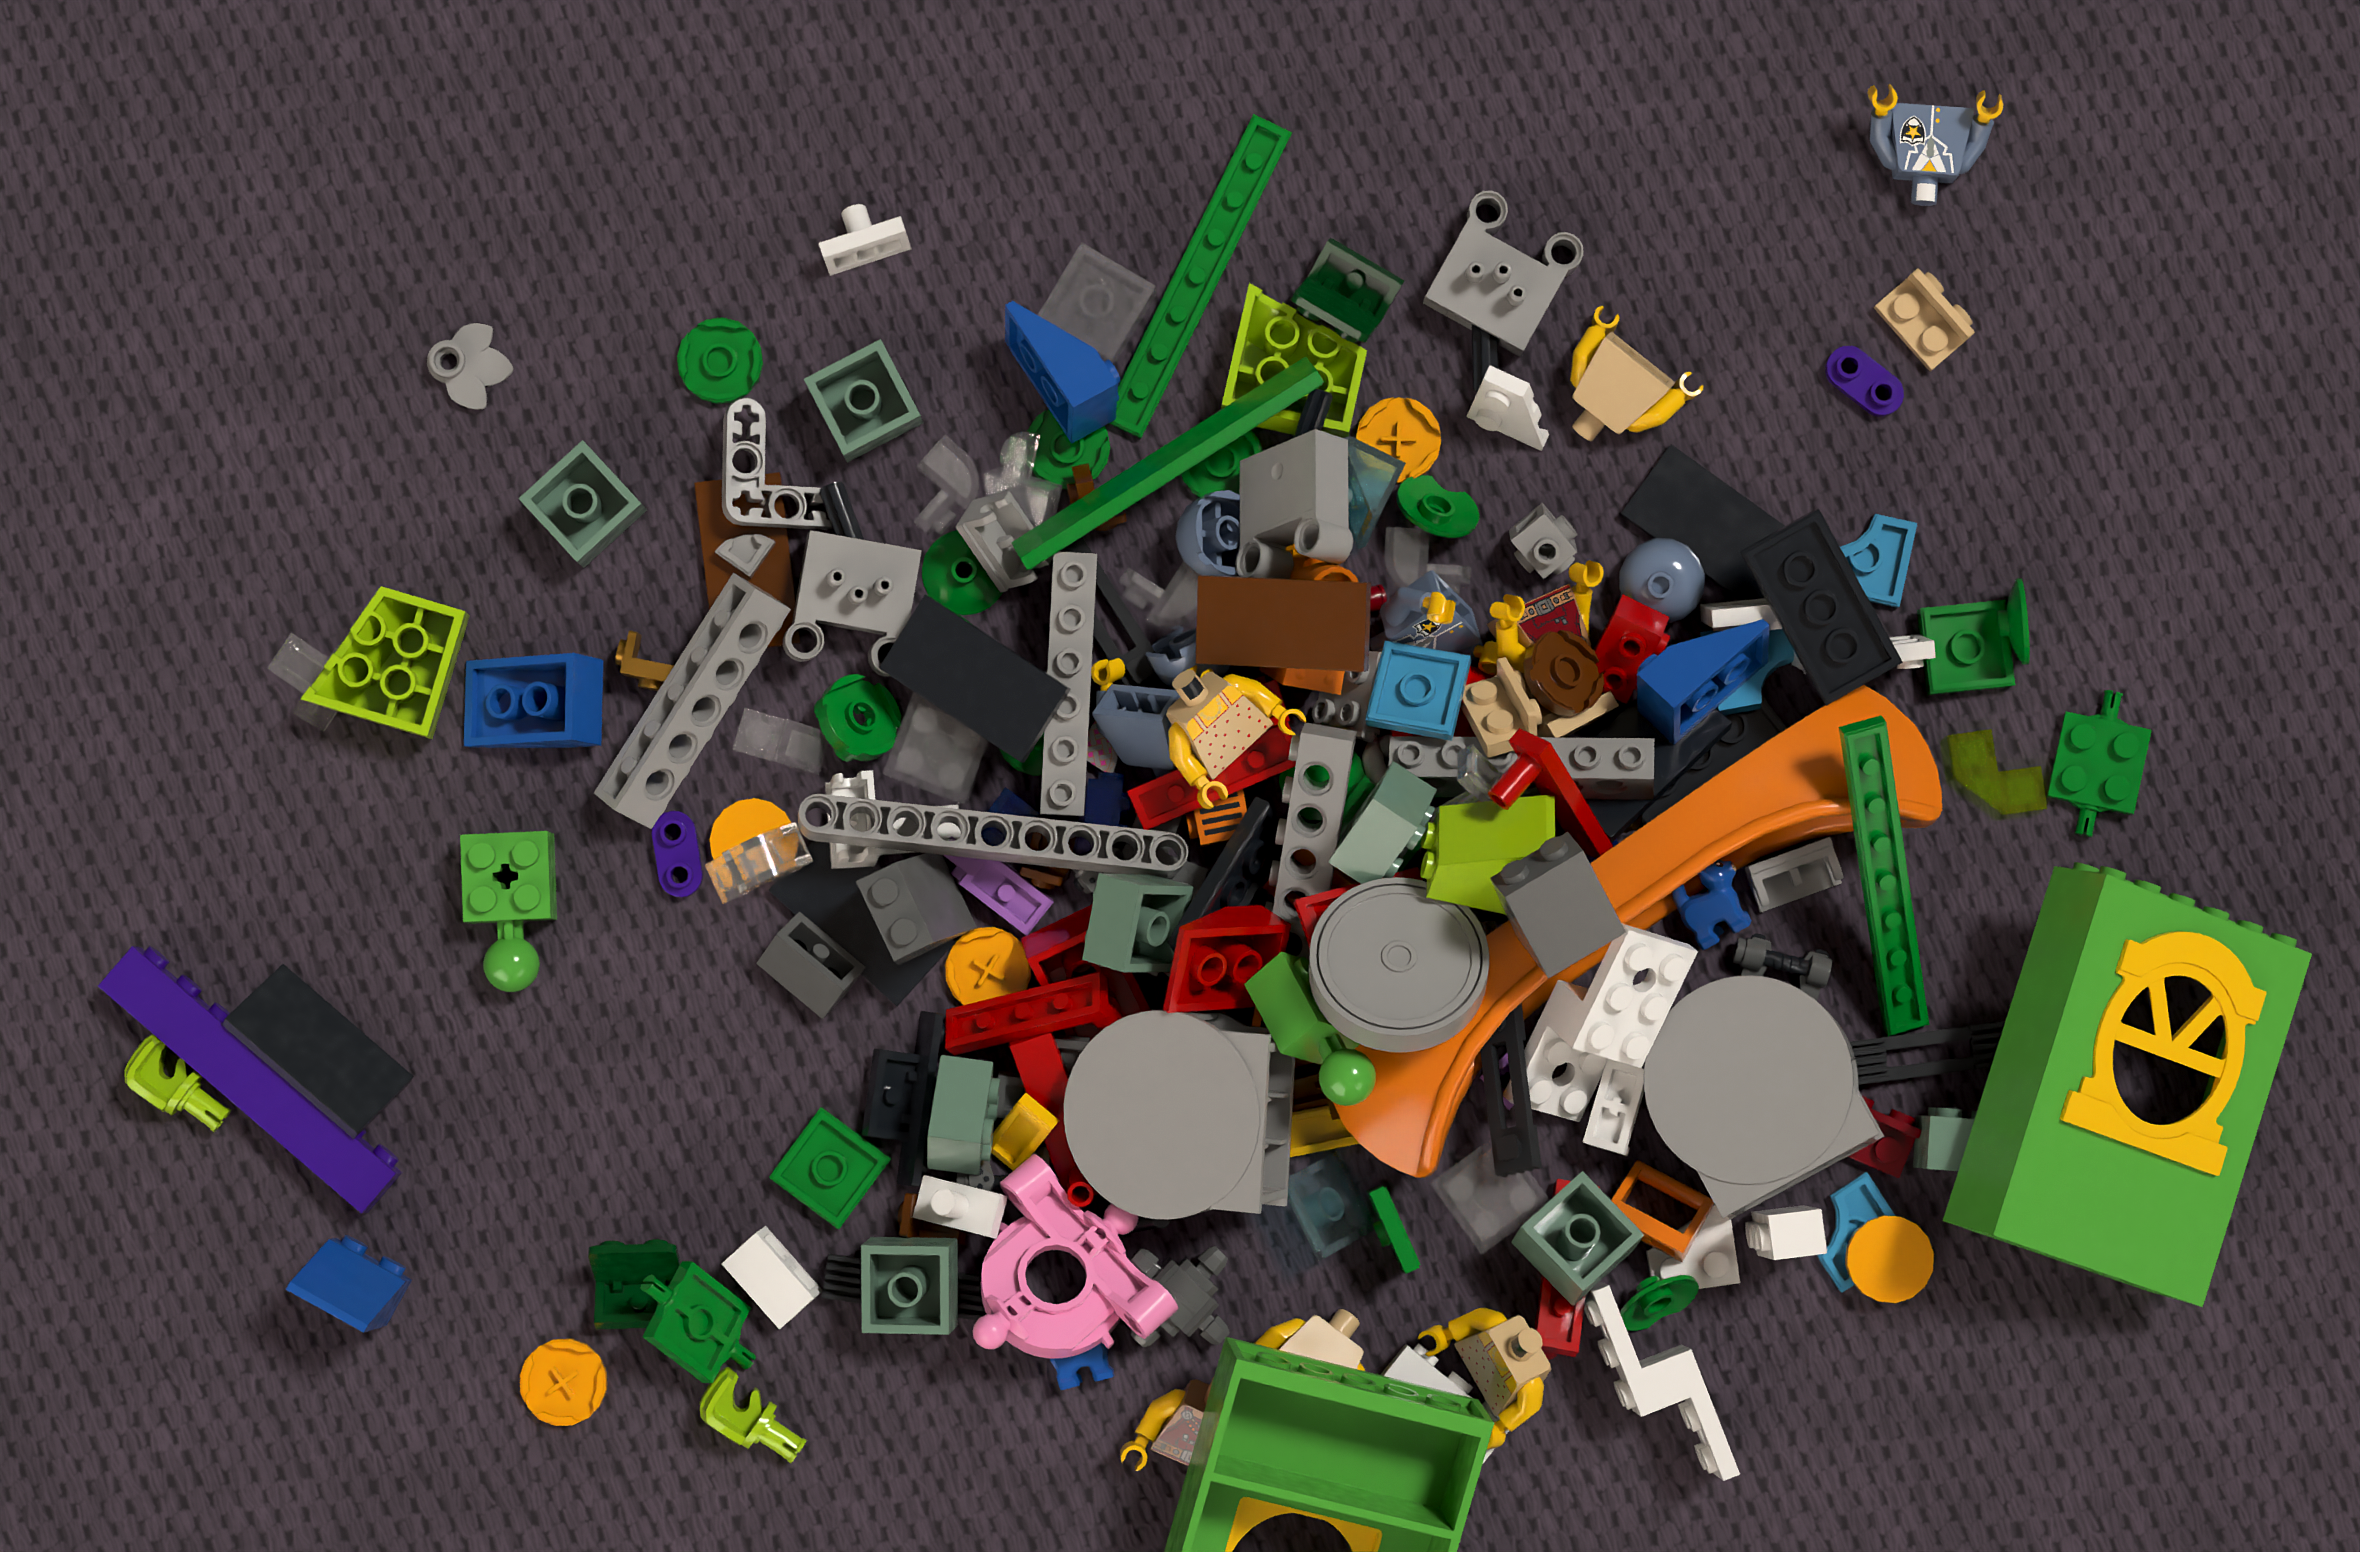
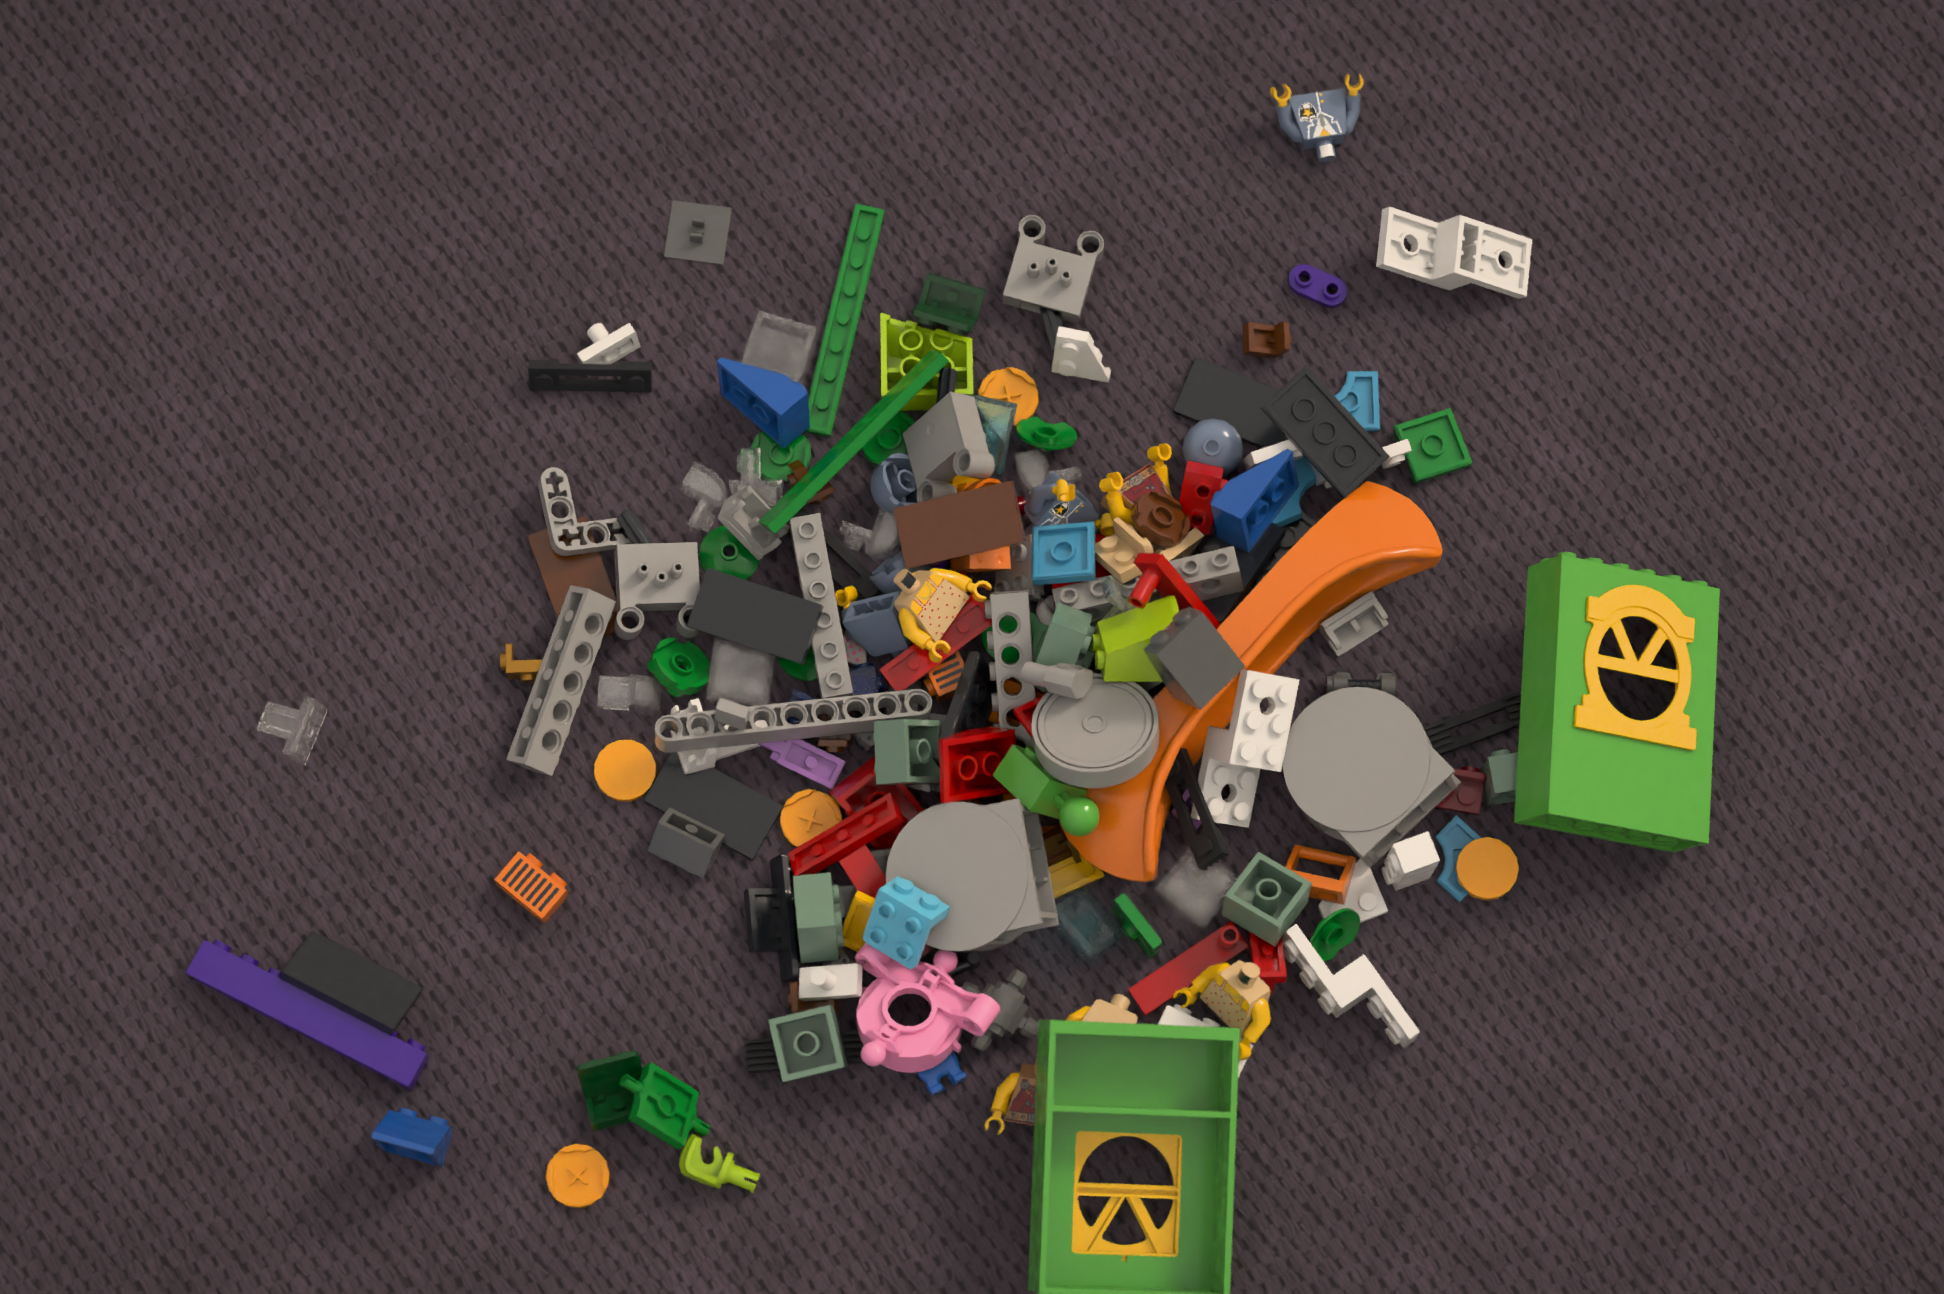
camera: 15 degrees left, 10 degrees down
(147, 1078) = (257, 1036): lime piece -> none
(394, 663) = (345, 703): lime wedge -> none
(475, 366) = (356, 493): light grey plate -> none
(510, 961) = (474, 889): bright green brick -> none
(534, 702) = (449, 709): blue slope -> none
(582, 504) = (453, 565): sand green brick -> none
(590, 974) = (532, 886): none -> orange brick
(677, 853) = (574, 790): dark purple plate -> none
(731, 370) = (522, 459): green tile -> none
(746, 552) = (574, 572): light grey tile -> none
(758, 862) = (632, 777): clear brick -> none
(772, 1277) = (709, 1066): white hinge -> none
(773, 264) = (547, 376): none -> black container
(830, 1168) = (732, 981): green plate -> none
(863, 400) = (632, 452): sand green brick -> none
(907, 816) = (732, 714): none -> light grey tile
(916, 905) = (748, 783): dark grey slope -> none
(1027, 103) = (697, 232): none -> dark grey piece
(1075, 1157) = (903, 921): none -> medium azure bracket
(1369, 882) = (1059, 678): none -> light grey piece
(1448, 1296) = (1181, 971): none -> red piece
(1542, 528) = (1115, 435): light grey brick -> none
(1615, 1107) = (1270, 808): white hinge -> none
(1620, 384) = (1151, 324): tan torso -> none
(1714, 905) = (1305, 655): blue animal -> none
(1774, 443) = (1266, 340): none -> reddish brown bracket
(1884, 874) = (1414, 602): green tile -> none
(1925, 318) = (1348, 234): tan bracket -> none
(1977, 770) = (1483, 536): clear neon green tile -> none
(2014, 622) = (1460, 418): green dish -> none
(2066, 382) = (1454, 252): none -> white bracket
(2099, 763) = (1543, 503): green plate -> none

